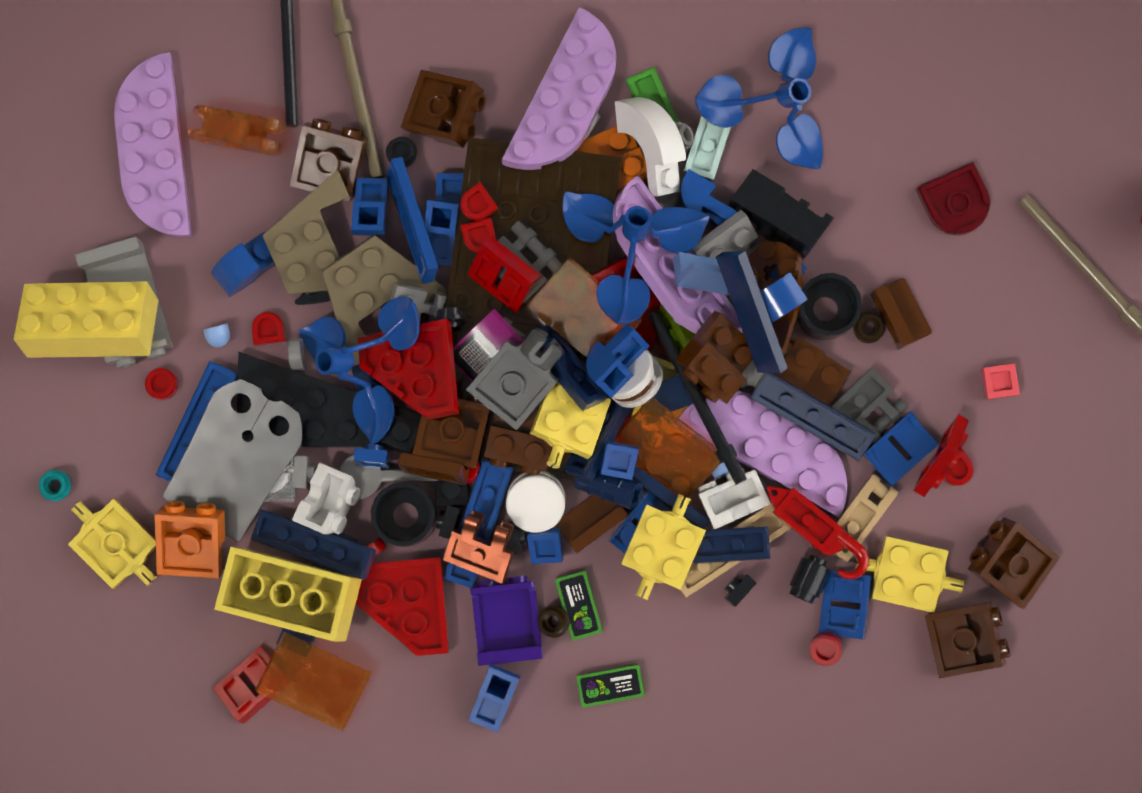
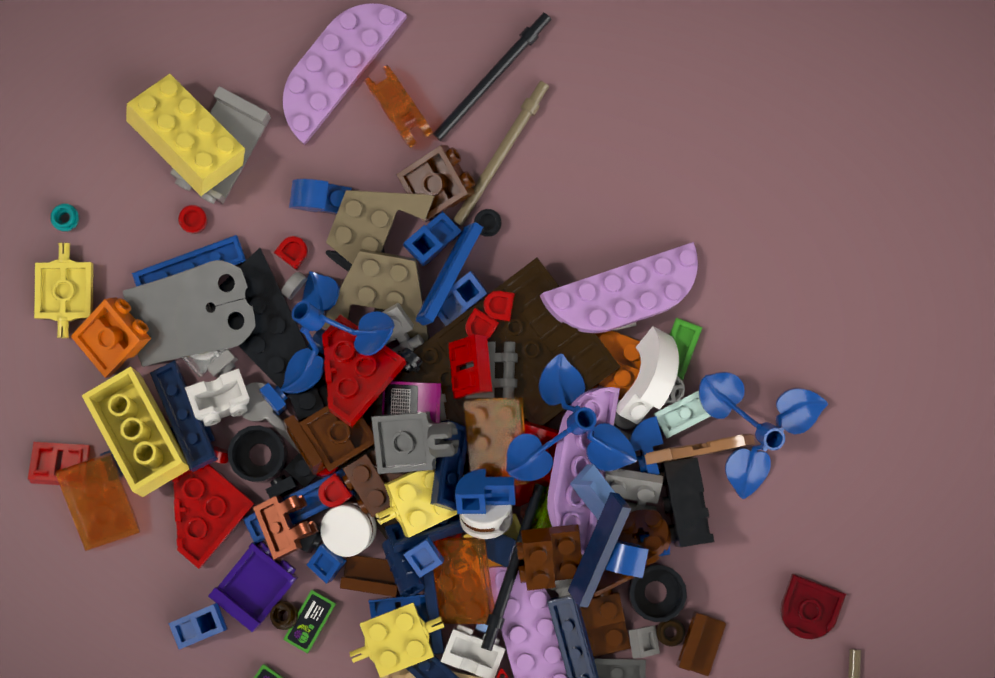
camera: 45 degrees right, 0 degrees up
(218, 335) = (257, 224): light blue hinge -> none
(444, 108) = (541, 222): reddish brown plate -> none
(449, 187) = (493, 276): blue plate -> none
(495, 482) = (334, 491): none -> red tile
(743, 169) = (709, 447): none -> medium nougat tile
(856, 355) = (644, 641): none -> light grey plate

